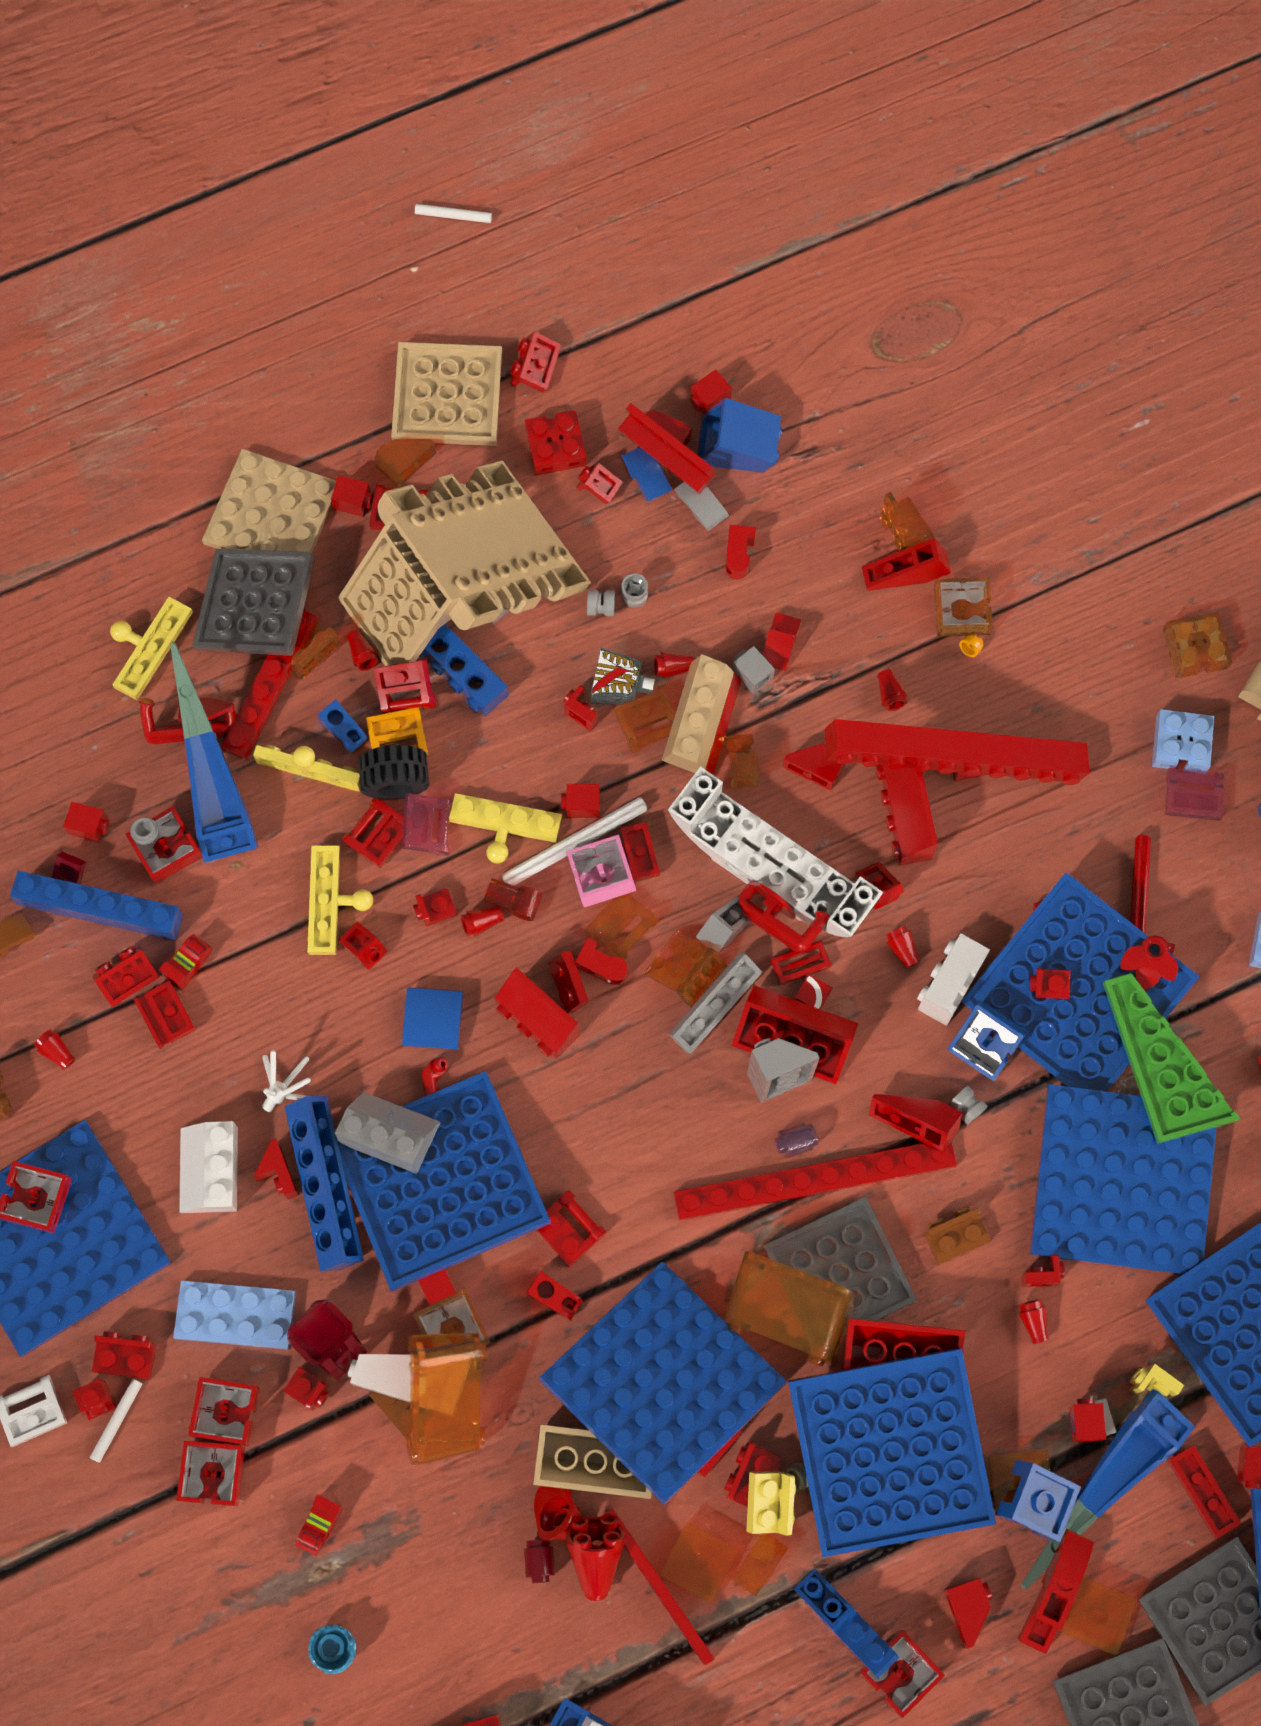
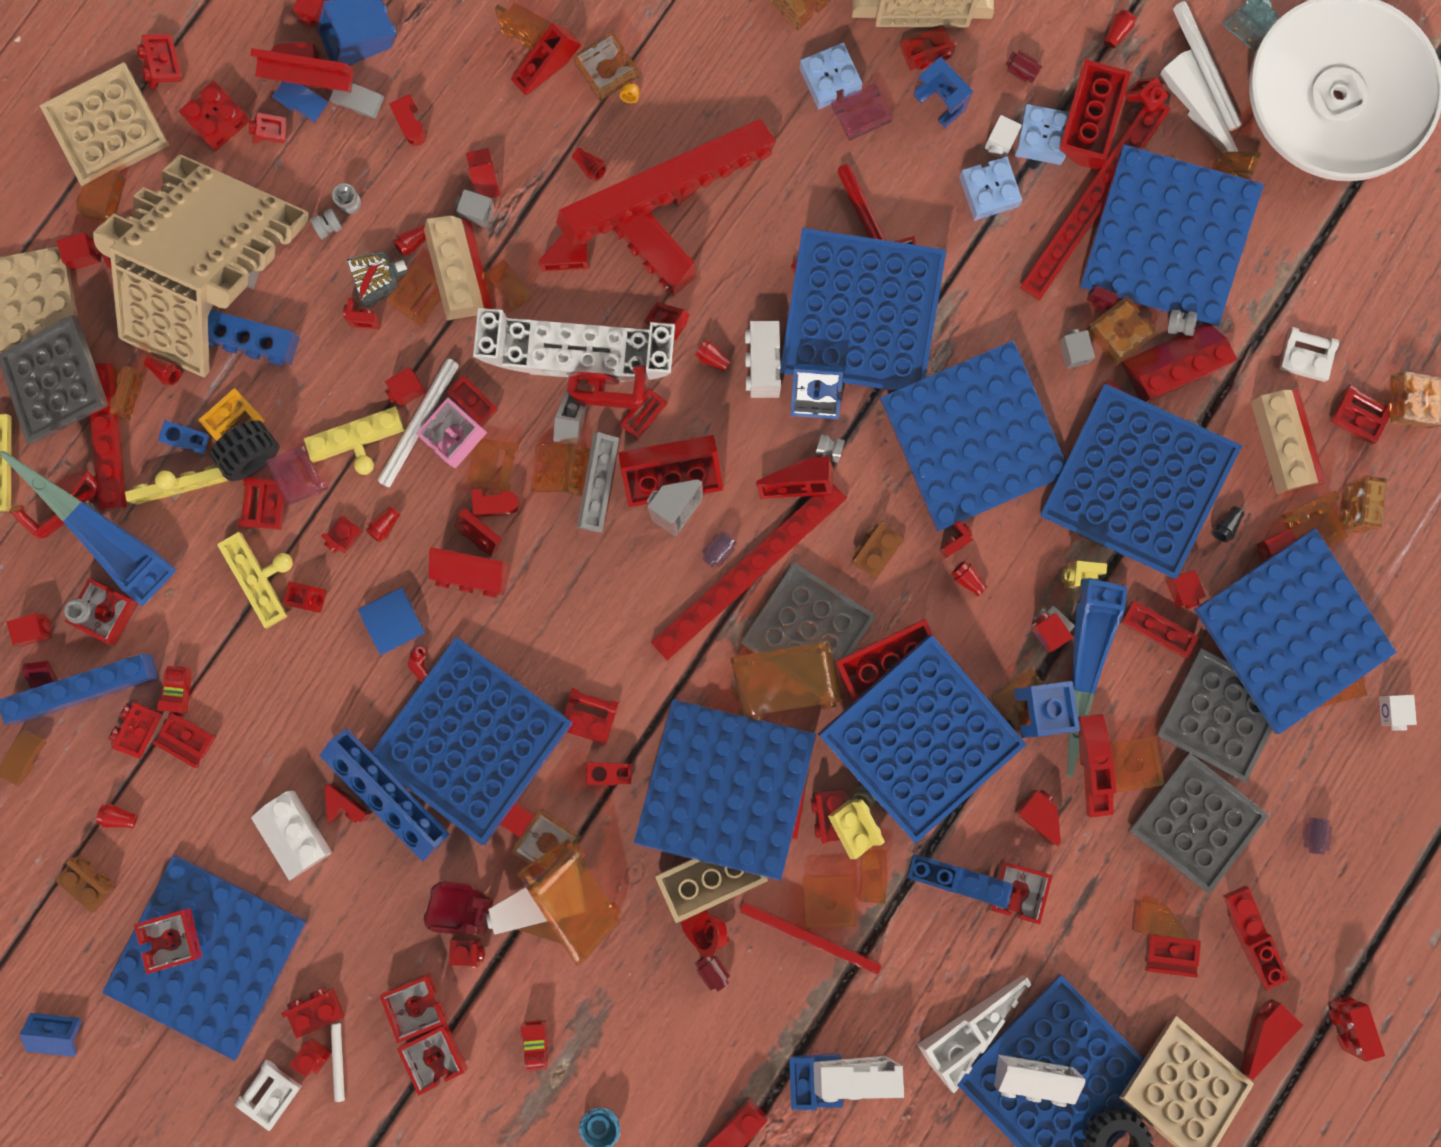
camera: 30 degrees left, 10 degrees up
(234, 1314) = (377, 931): light blue plate -> none
(277, 1090) = (308, 745): white plant -> none
(387, 1131) = (408, 728): light grey slope -> none
(404, 678) = (206, 373): red plate -> none
(521, 901) = (404, 492): clear red piece -> none
(595, 1552) = (750, 942): red cone -> none
(813, 992) = (666, 430): red tile -> none
(1050, 984) = (839, 320): red bracket -> none
(1148, 966) = (906, 263): red plate -> none
(1169, 1078) = (962, 337): bright green wing -> none

